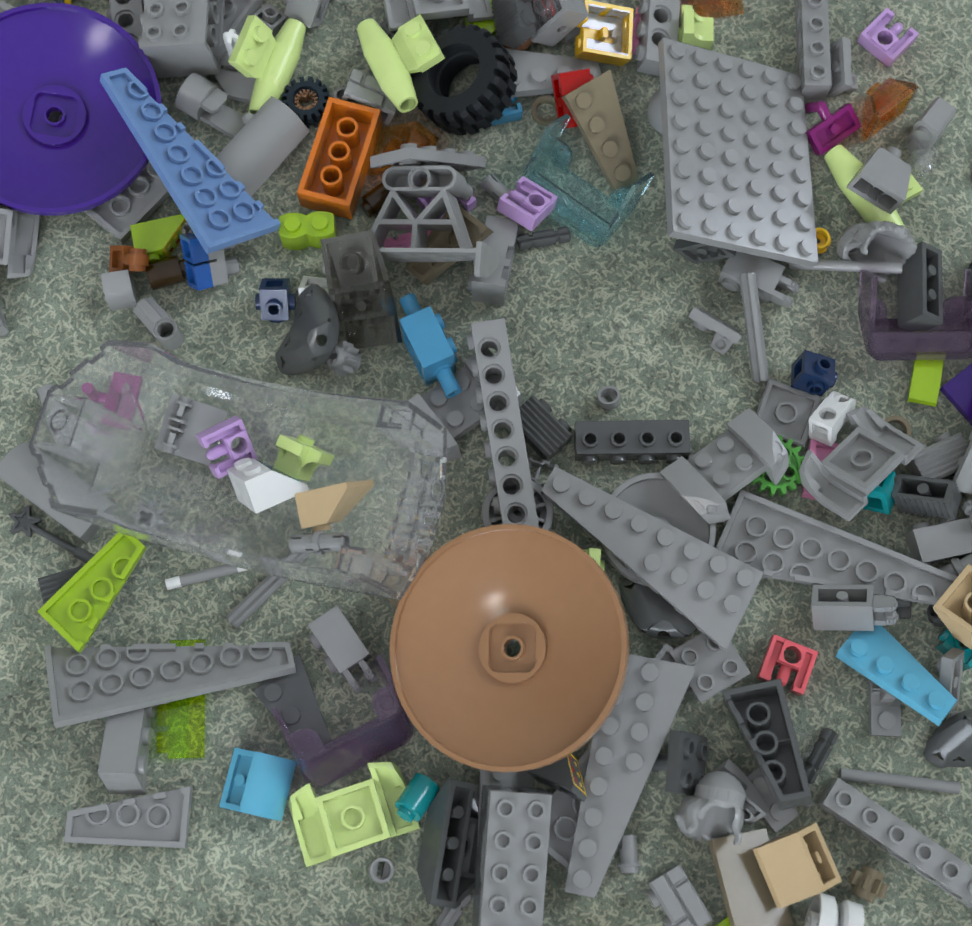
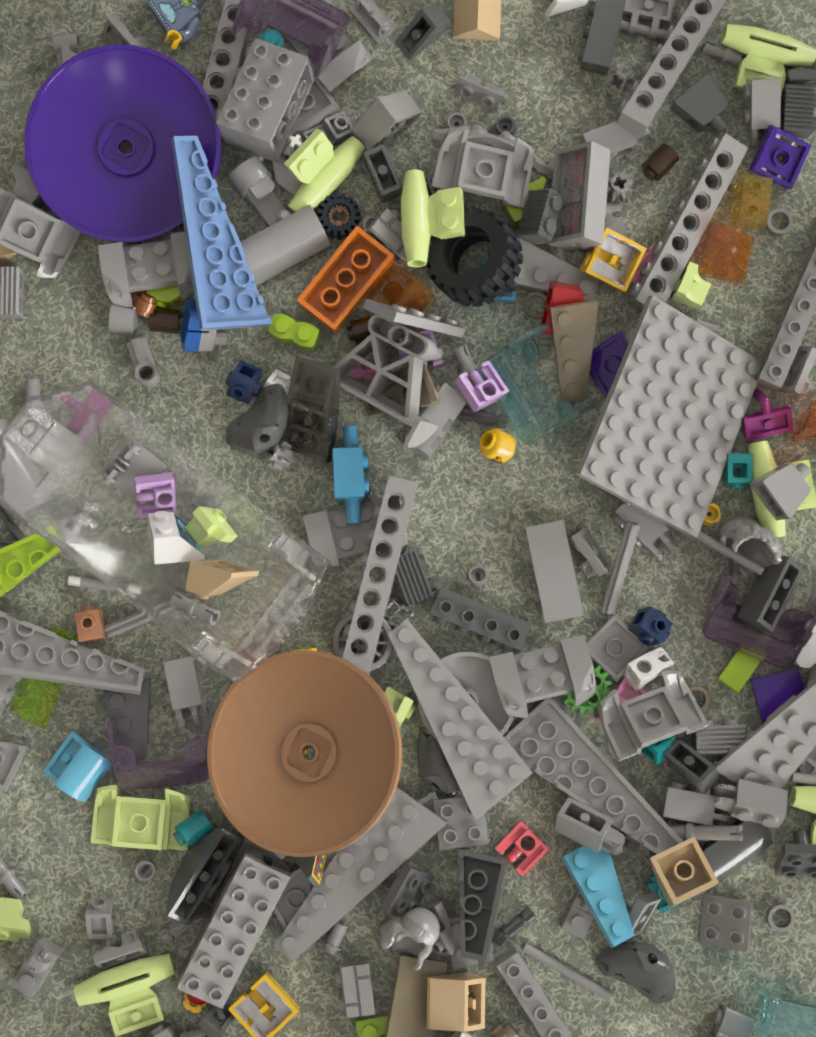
camera: 20 degrees right, 10 degrees up
(126, 222) = (145, 268): none -> light grey piece
(209, 620) = (90, 624): none -> nougat brick
(334, 42) = (382, 173): none -> dark grey brick
(569, 257) = (497, 445): none -> yellow head
(645, 133) = (606, 361): none -> dark purple tile
(688, 359) = (554, 571): none -> light grey brick
(827, 177) = (743, 463): none -> teal brick

